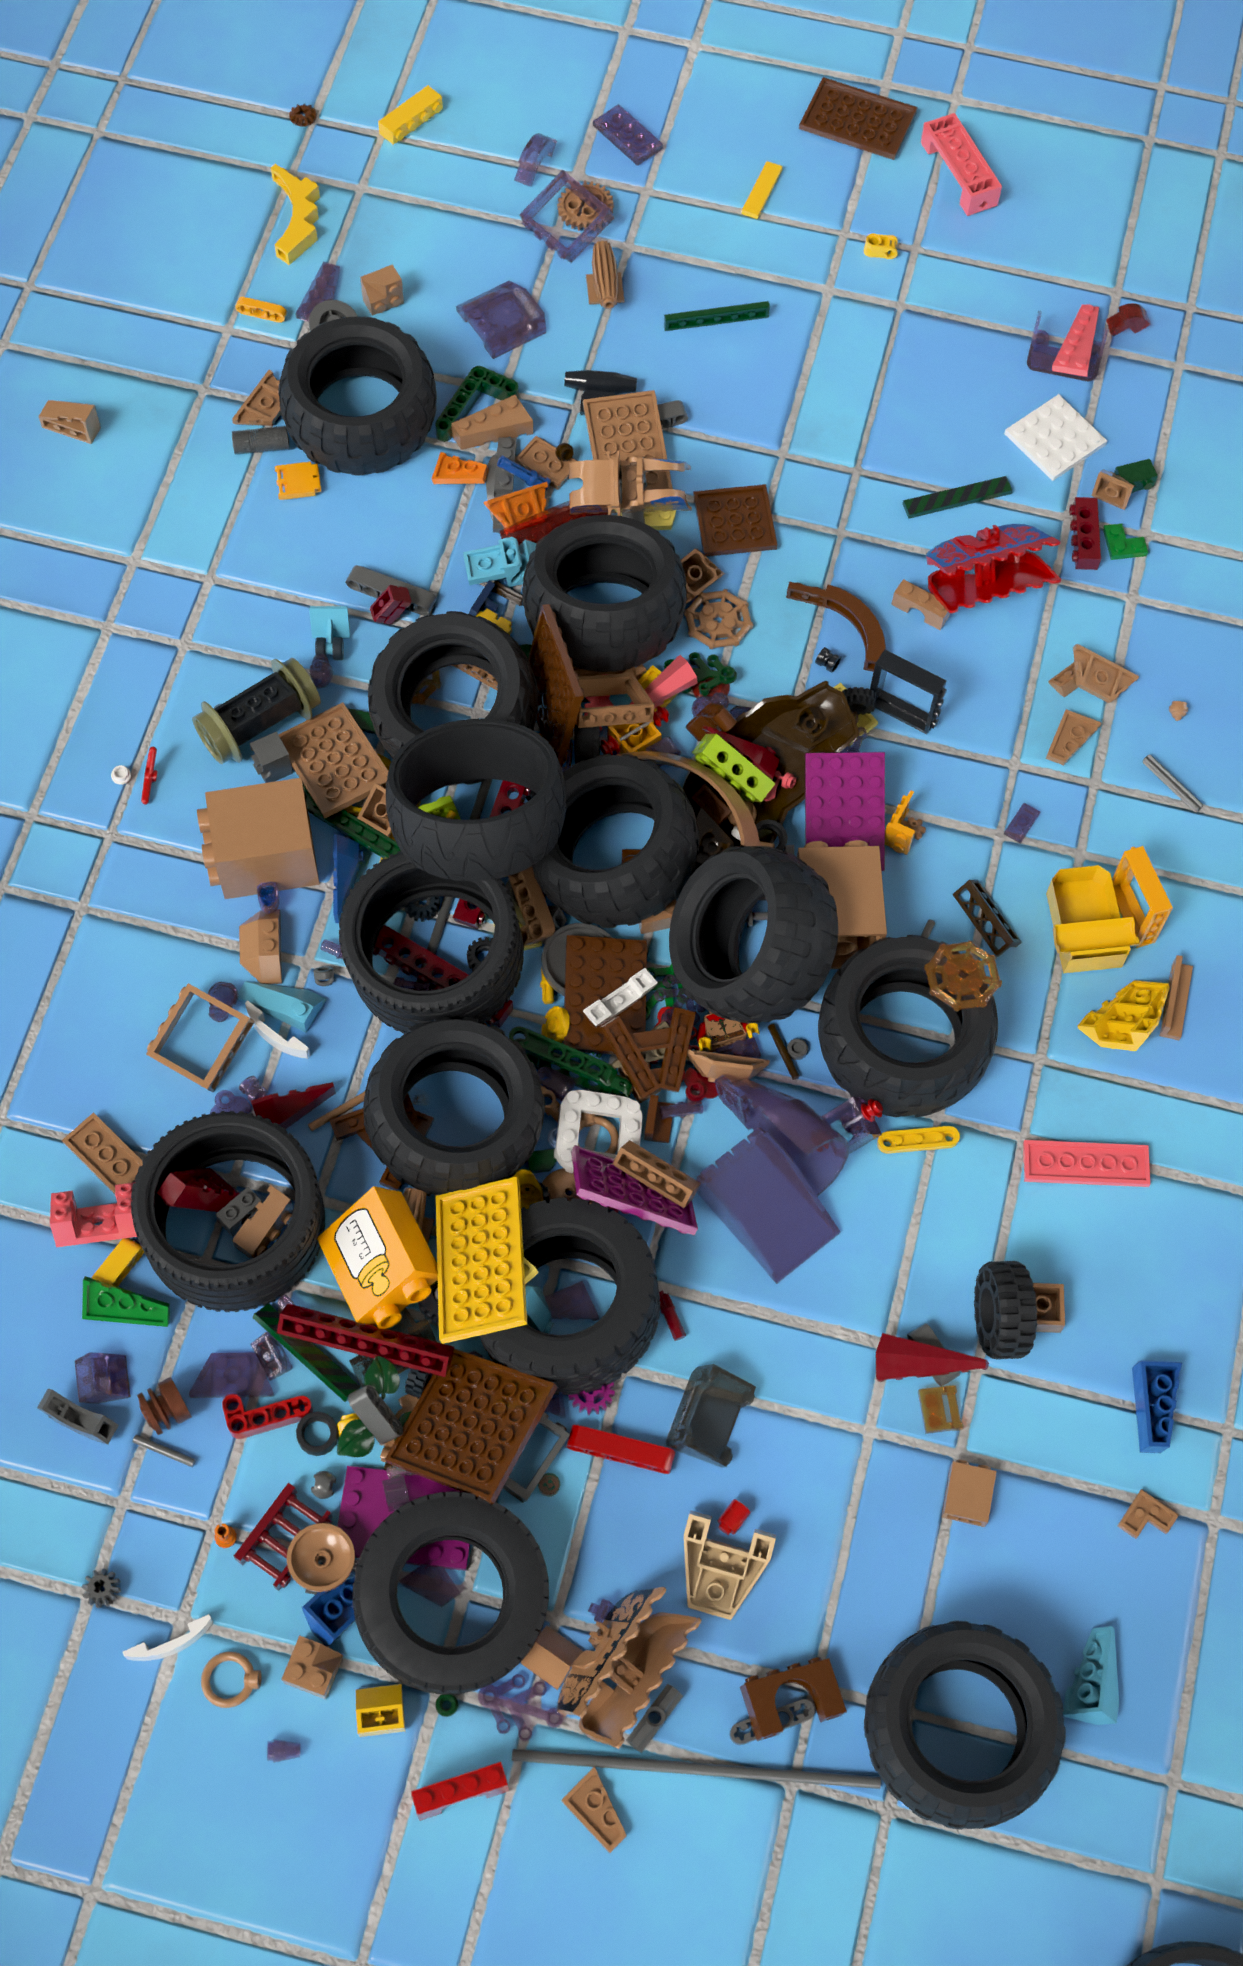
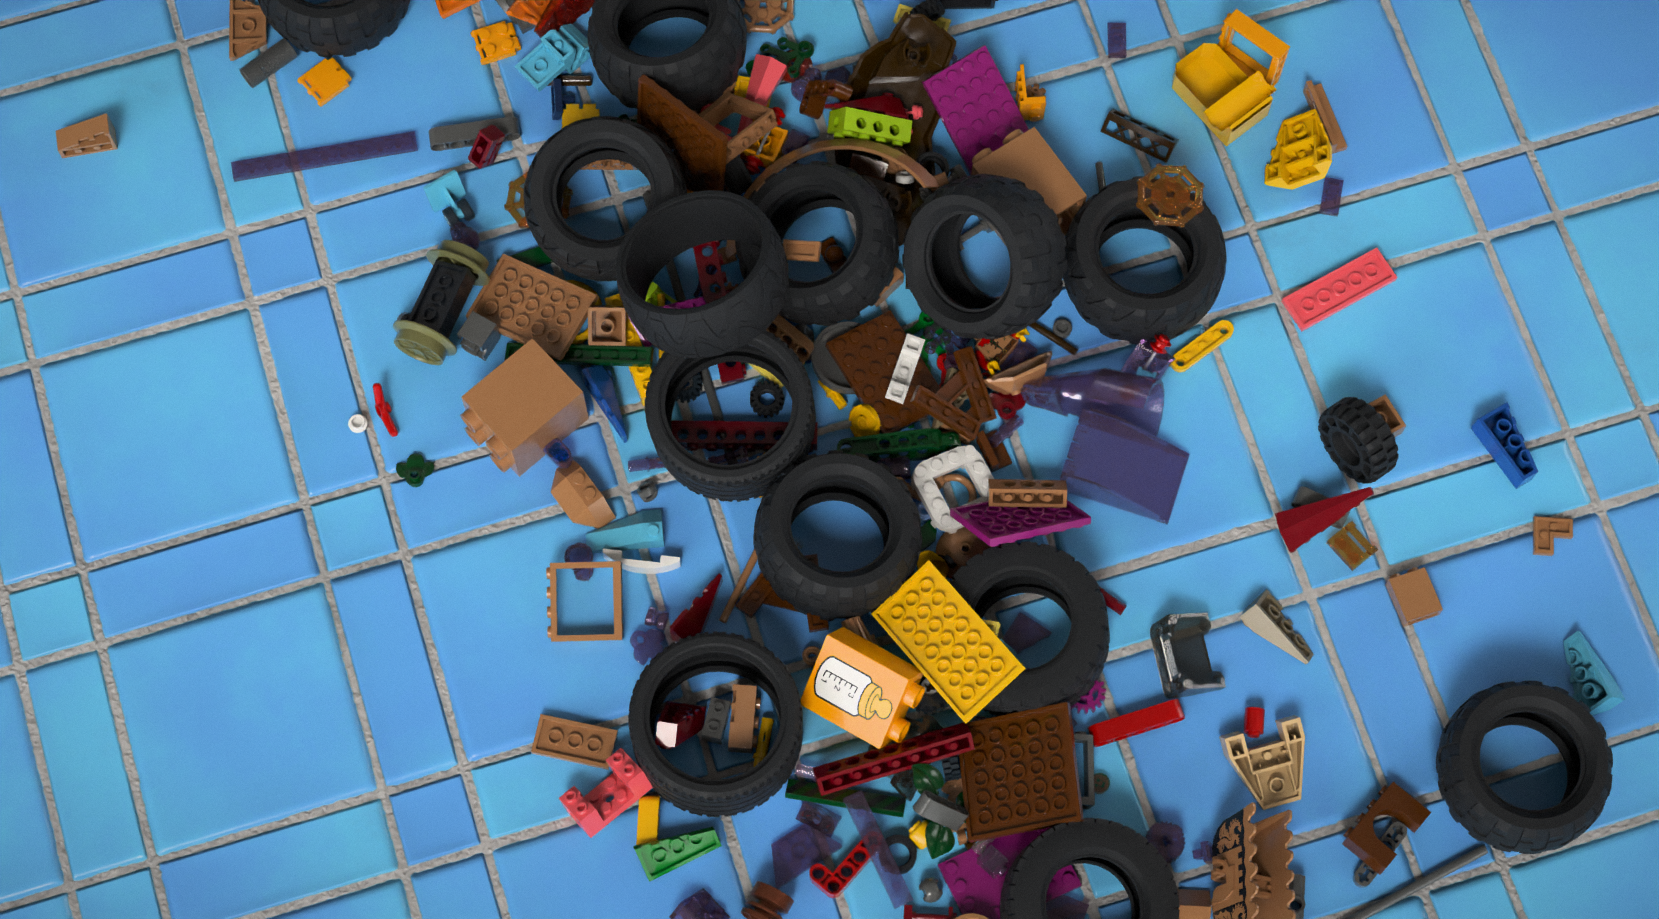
camera: 30 degrees left, 5 degrees up
(140, 841) = (415, 467): none -> dark green plate
(254, 541) = (324, 156): none -> clear purple plate
(298, 1416) = (878, 849): none -> clear purple tile
(465, 527) = (497, 41): none -> light orange plate
(569, 1565) = (1172, 835): none -> clear purple brick
(585, 832) = (802, 250): none -> medium nougat tile
(811, 1432) = (1266, 620): none -> dark tan wedge
(1135, 1075) = (1331, 196): none -> clear purple tile

